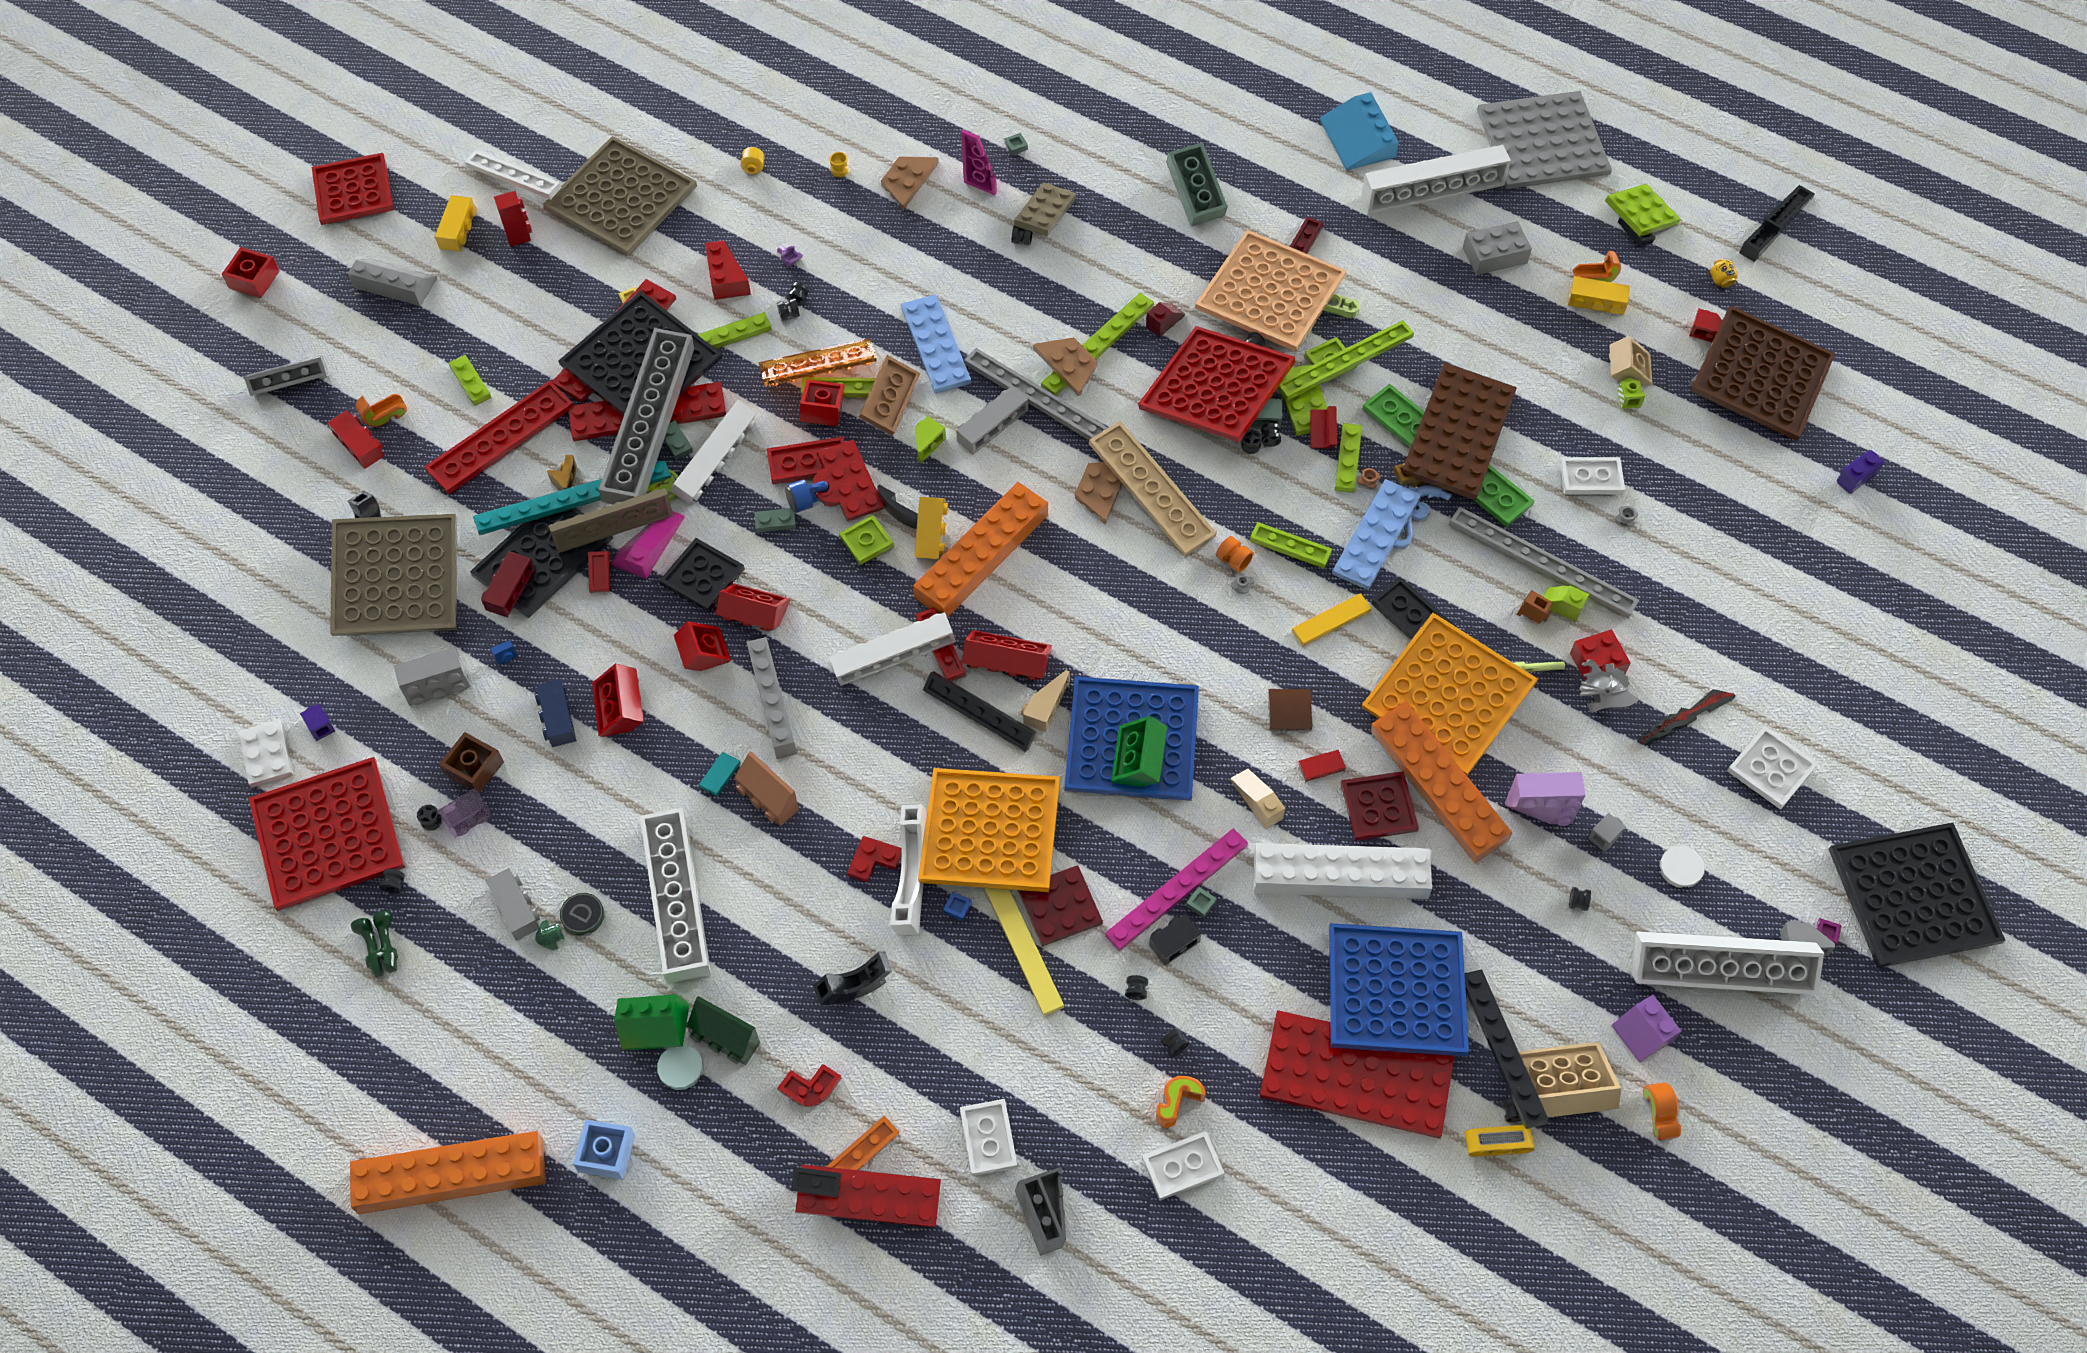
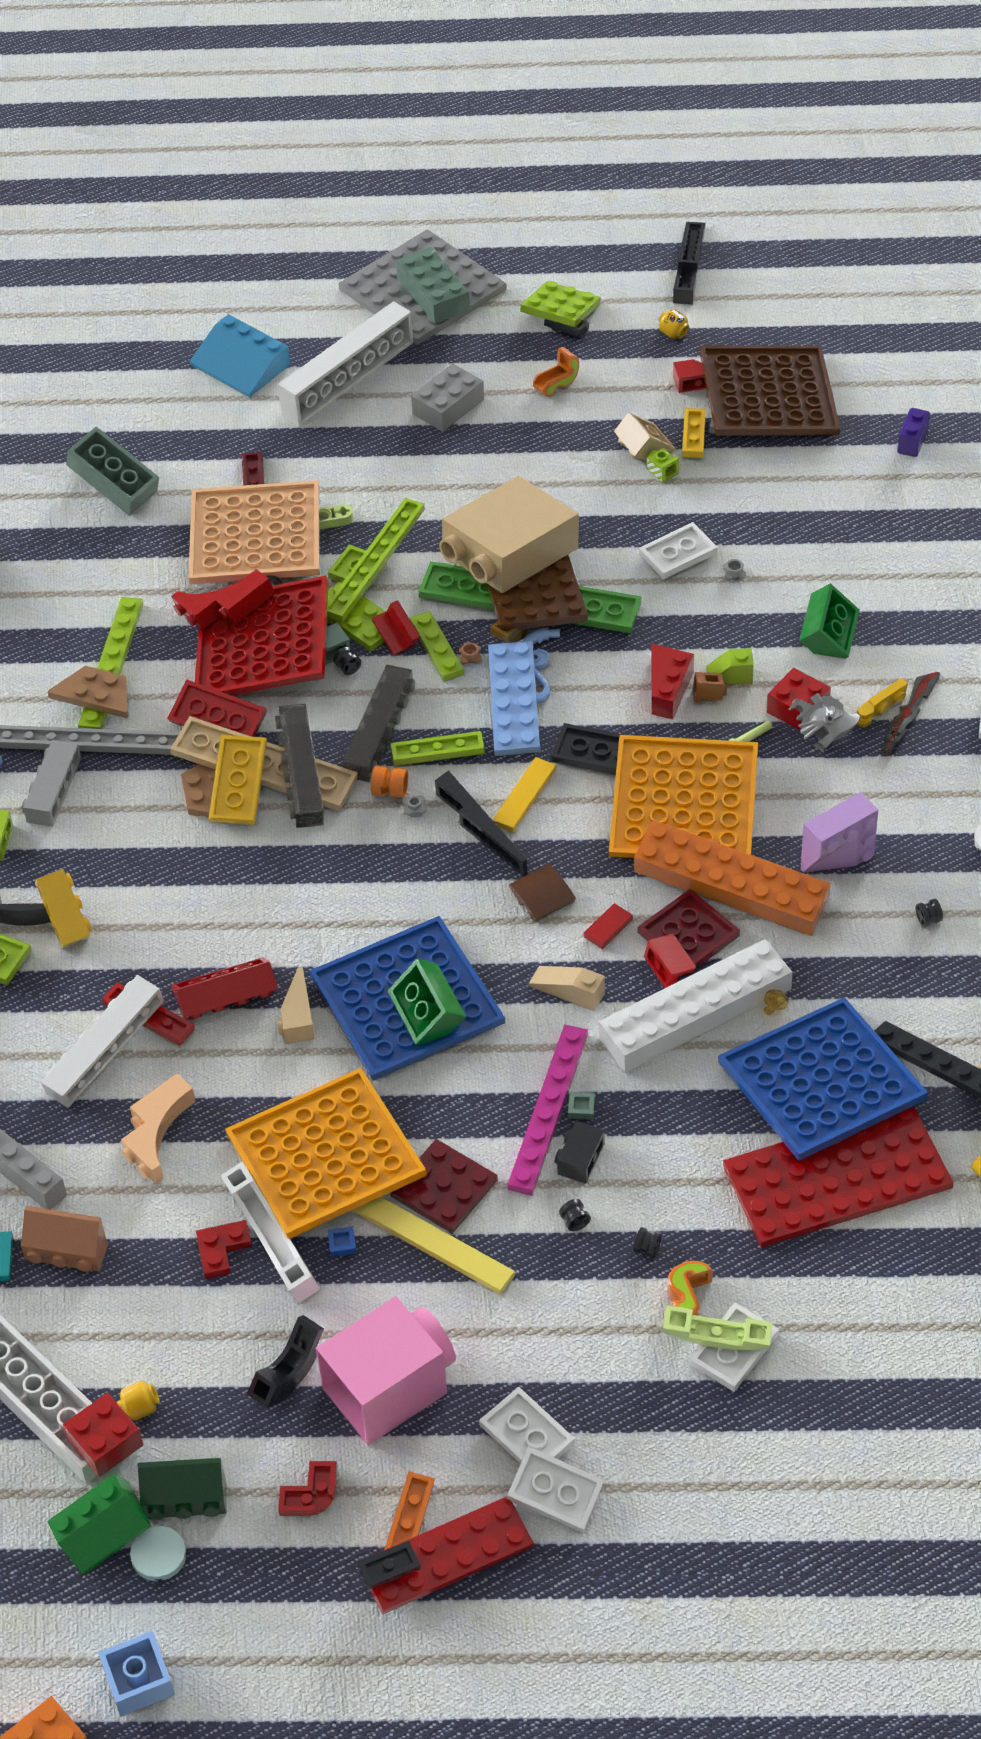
camera: 30 degrees left, 10 degrees down
(688, 959) = (103, 1434): none -> red brick
(739, 943) = (138, 1400): none -> yellow head
(889, 730) = (151, 1119): none -> light nougat arch
(916, 1028) = (386, 1367): none -> bright pink container
(975, 1196) = (555, 1489): none -> white plate
(979, 711) = (233, 1053): black plate -> none
(981, 550) = (128, 905): orange brick -> none
(1043, 1209) = (631, 1462): dark grey wedge -> none
(1122, 491) = (238, 780): none -> yellow tile
(1145, 426) = (216, 708): none -> red plate
(1163, 317) = (160, 610): dark red slope -> none
(1174, 505) = (300, 766): none -> clear smoke brick
(1174, 1147) = (716, 1332): none -> yellowish green slope
(1210, 341) = (229, 603): none -> red arch
(1251, 441) = (333, 676): black wheel -> none
(1261, 498) = (379, 721): none -> clear smoke brick
(1279, 624) = (478, 822): none -> black slope
(1347, 821) = (668, 959): none -> red panel
(1407, 903) = (775, 1001): none -> clear yellow plate
(1458, 395) = (509, 534): none -> tan brick
(1508, 584) = (669, 679): none -> red wedge
(1543, 562) = (699, 644): light grey plate -> none
(1548, 144) = (433, 285): none -> sand green brick
(1598, 295) = (572, 394): yellow brick -> none
(1606, 832) = (911, 843): light grey brick -> none
(1666, 696) = (881, 702): none -> yellow hinge
(1671, 604) = (829, 623): none -> green slope
(1675, 378) = (693, 433): none -> yellow plate

